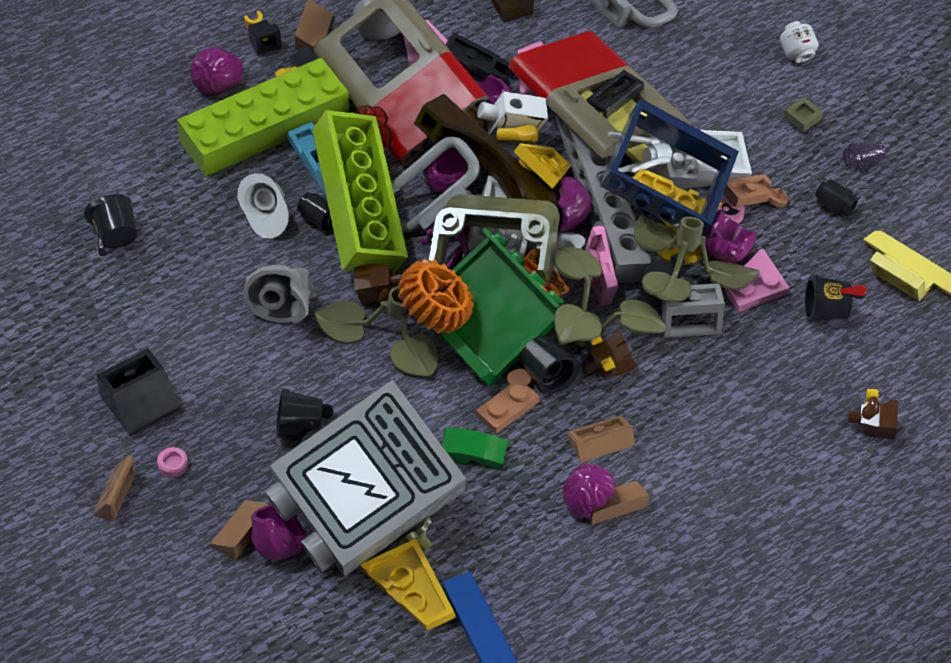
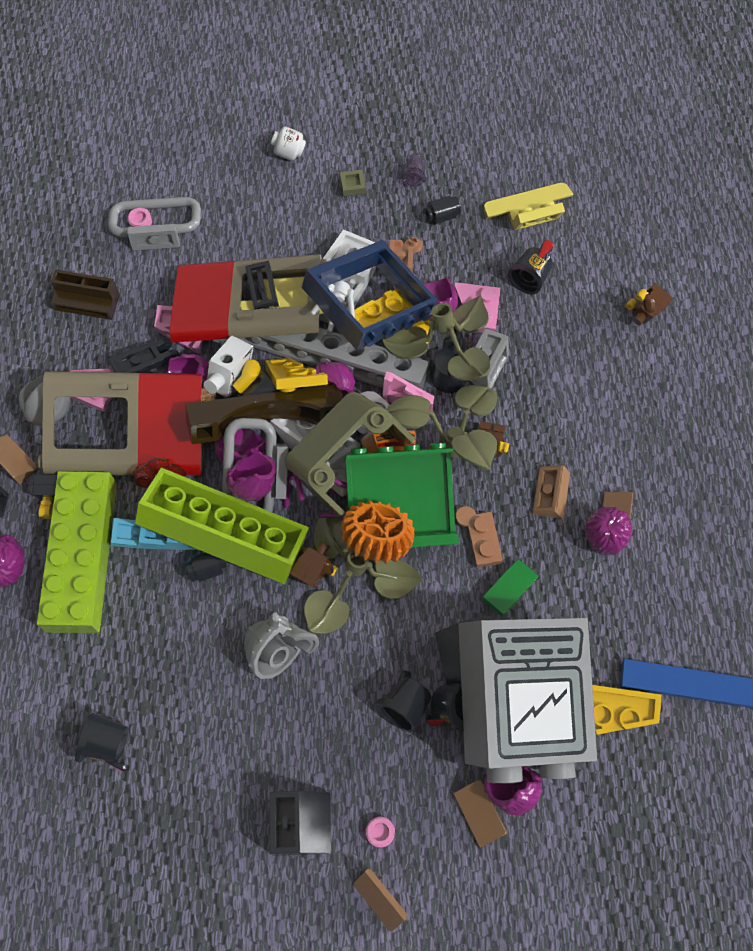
camera: 55 degrees left, 15 degrees up
(263, 205) = (173, 606): white piece -> none
(418, 185) = (252, 477): none -> magenta hair
(549, 364) = (471, 488): black hat -> none

